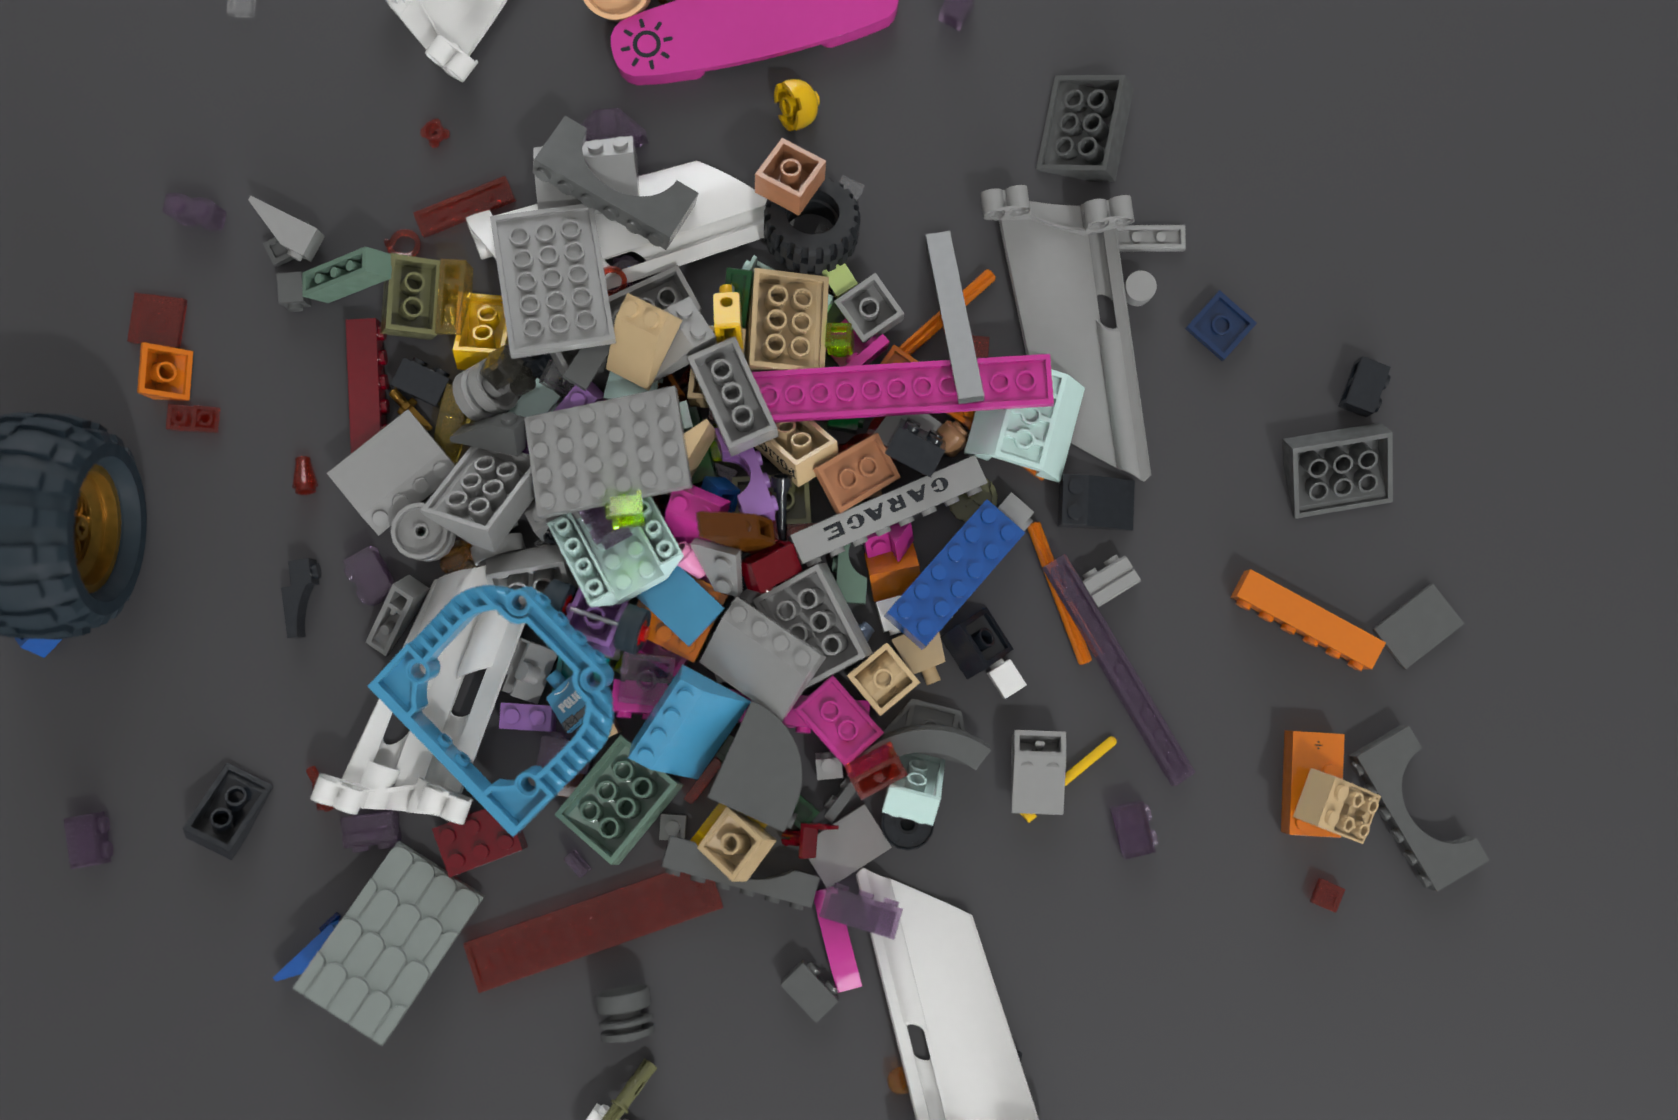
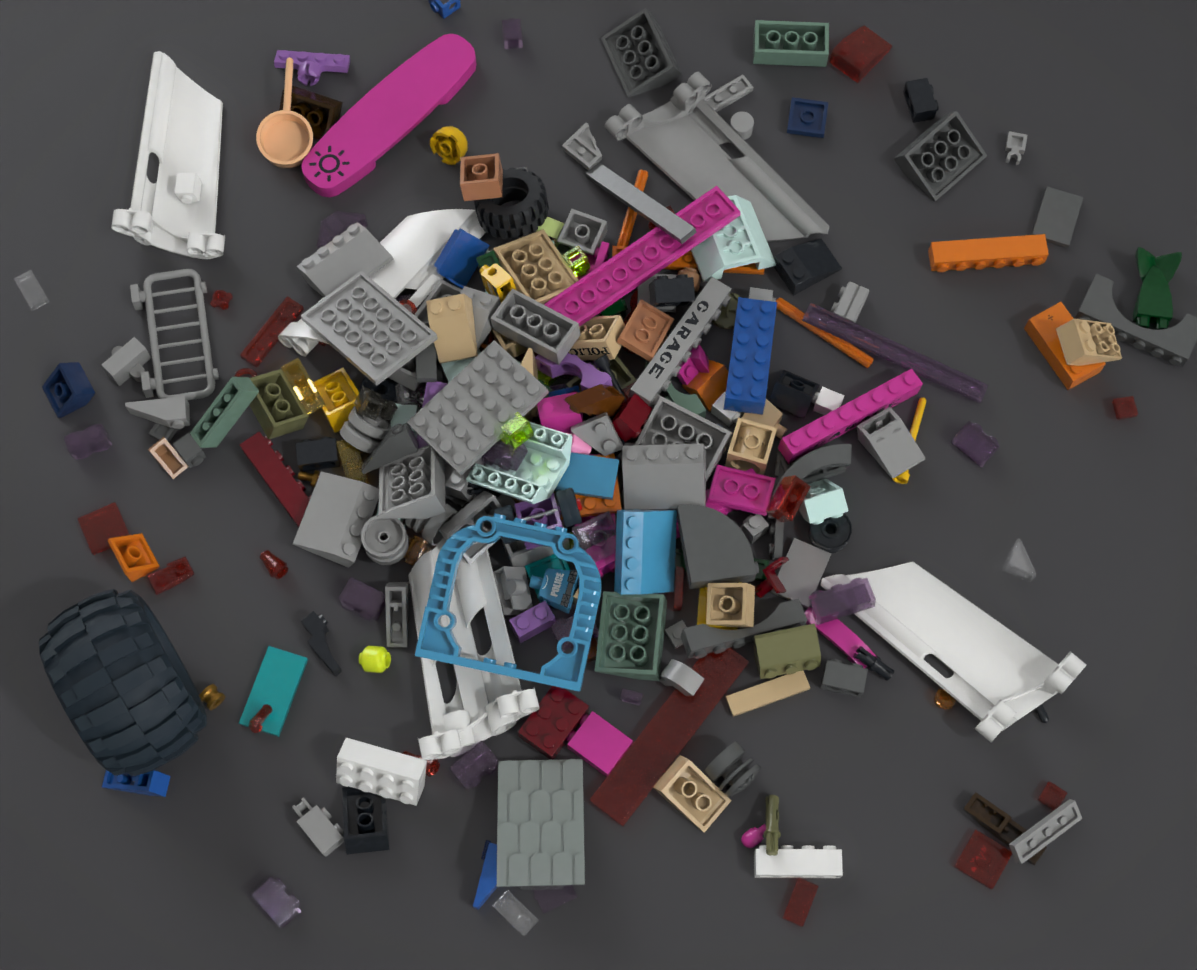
camera: 30 degrees left, 15 degrees down
(153, 581) = (212, 696): none -> pearl gold wheel
(175, 789) = (319, 828): none -> light grey brick
(178, 639) = (259, 718): none -> clear red arm
(211, 136) = (68, 388): none -> dark blue slope
(221, 614) = (275, 686): none -> teal tile
(263, 283) = (168, 458): none -> medium nougat slope
(266, 778) = (381, 771): none -> white brick
(287, 145) = (127, 362): none -> light grey piece
(315, 1018) = (515, 913): none -> clear plate
(342, 649) = (375, 659): none -> neon yellow head
(347, 75) = (146, 295): none -> light grey bar
(511, 891) = (599, 743): none -> dark pink brick
(569, 1004) = (692, 793): none -> tan slope
(604, 1090) = (753, 836): none -> dark pink cylinder
(637, 882) = (681, 677): none -> light grey brick
(652, 216) = (331, 257): dark grey arch -> none
(711, 252) = (459, 257): none -> blue piece
(722, 950) = (767, 693): none -> tan tile
(766, 928) = (787, 651): none -> olive slope
(851, 996) = (873, 663): none -> black pin
(943, 201) = (583, 148): none -> light grey wing
(1017, 712) = (849, 416): none -> dark pink brick
(1084, 987) = (1019, 562): none -> clear slope
(1265, 223) = (791, 43): none -> sand green brick
(1338, 283) = (859, 53): none -> clear red slope
(1433, 512) = (1015, 146): none -> light grey plate
(1456, 792) = (1154, 296): none -> dark green hips

